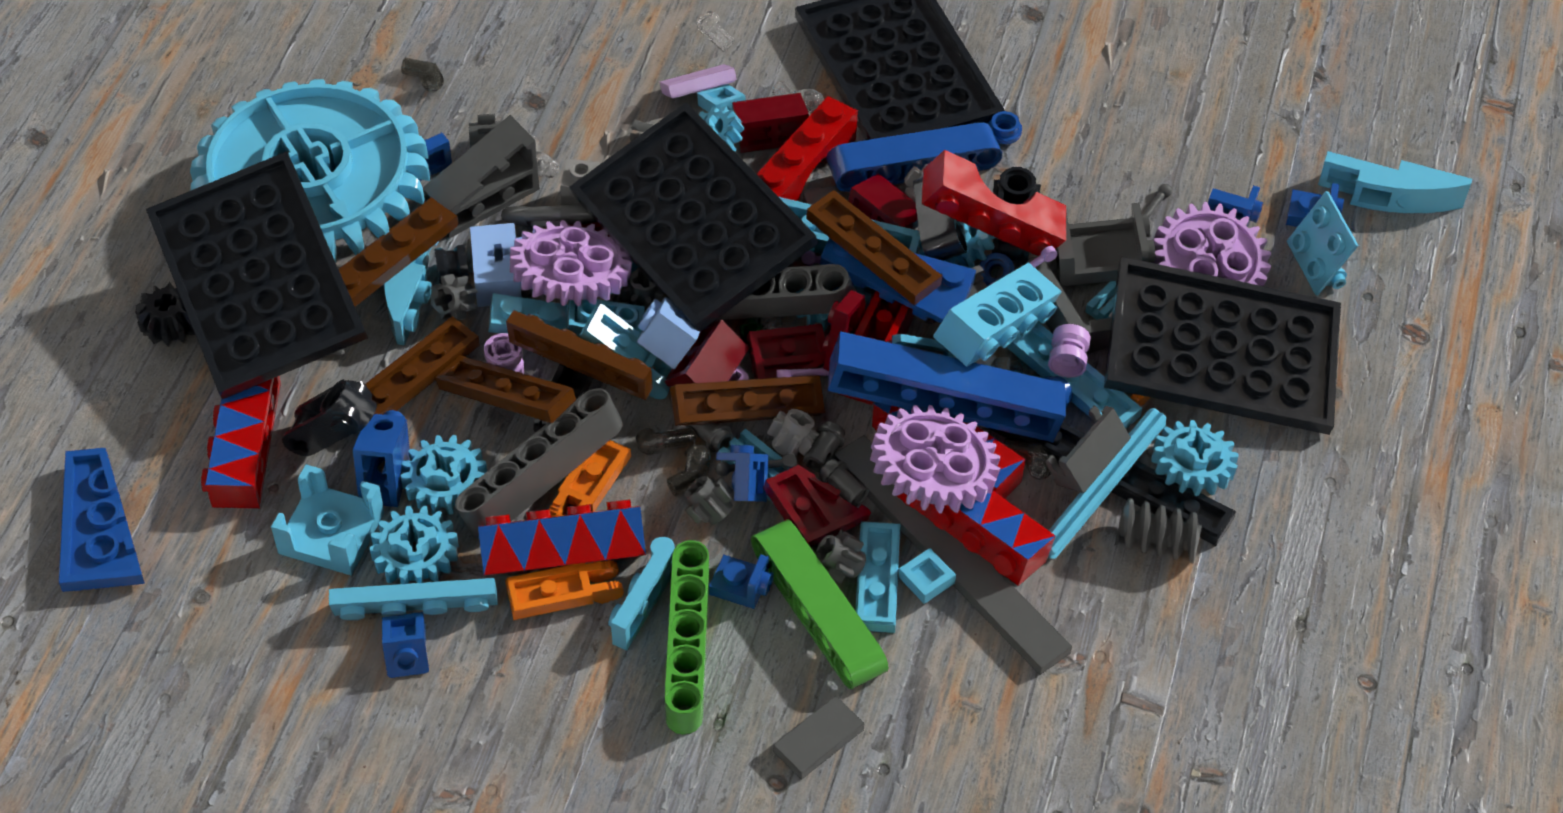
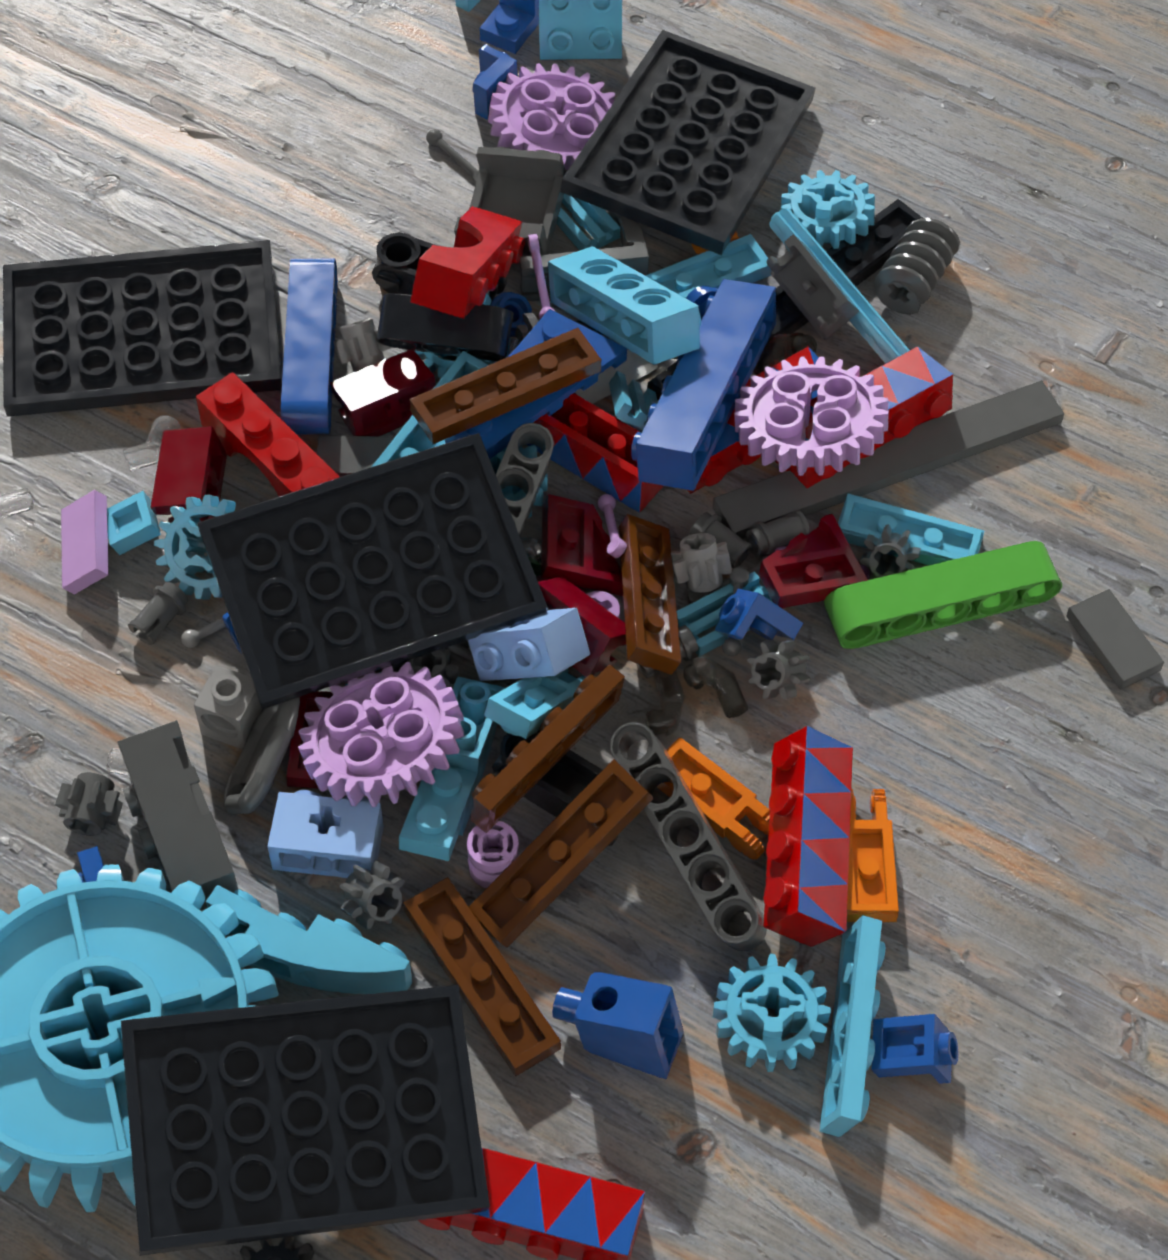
camera: 75 degrees left, 5 degrees up
(329, 524) = (707, 1113): medium azure panel -> none
(330, 417) = (563, 1069): black piece -> none
(396, 249) = (285, 938): reddish brown plate -> none
(441, 472) = (679, 943): medium azure gear -> none
(451, 262) = (308, 889): black wheel -> none
(642, 594) = (899, 766): medium azure plate -> none
(690, 651) = (989, 726): bright green beam -> none
(741, 580) = (892, 664): blue bracket -> none
(844, 317) = (583, 465): dark red wing -> none
(927, 575) = (925, 484): medium azure plate -> none
(1006, 127) = (288, 246): blue plate -> none
(1069, 350) = (670, 266): lavender wheel -> none

